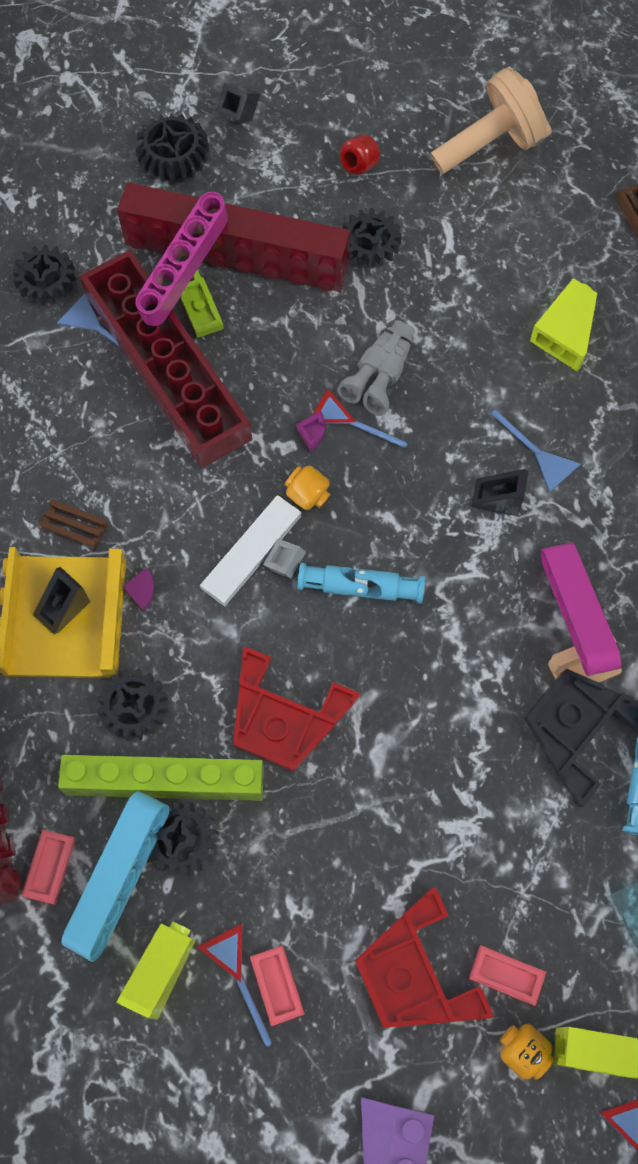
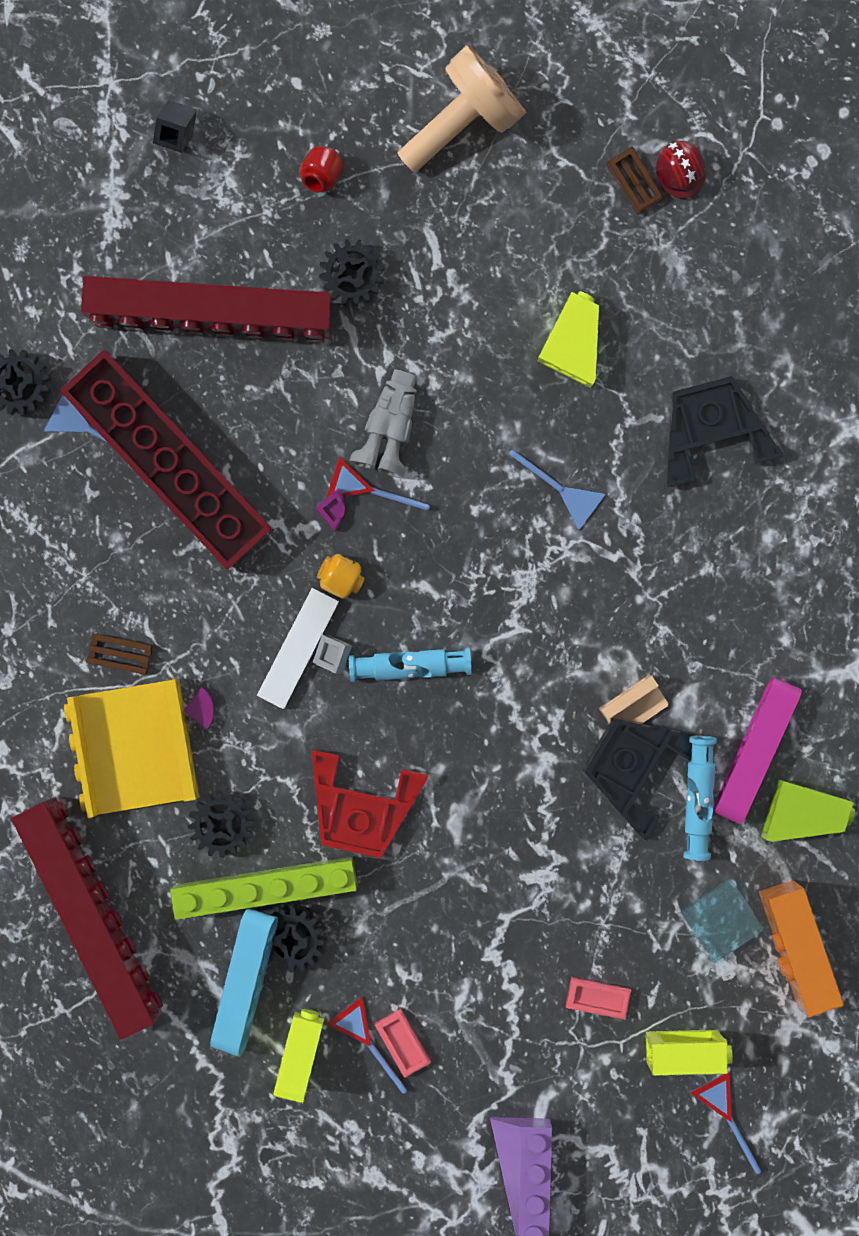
camera: 10 degrees left, 20 degrees up
(48, 867) = (181, 981): coral tile -> none
(60, 601) = (129, 740): black slope -> none
(172, 148) = (125, 192): black gear -> none
(182, 245) = (153, 375): dark pink beam -> none
(200, 307) = (185, 384): lime hinge -> none
(403, 980) = (508, 1017): red wing -> none
(501, 492) = (528, 545): black slope -> none
(526, 1051) = (622, 1058): light orange head -> none
(580, 609) = (620, 659): dark pink beam -> none

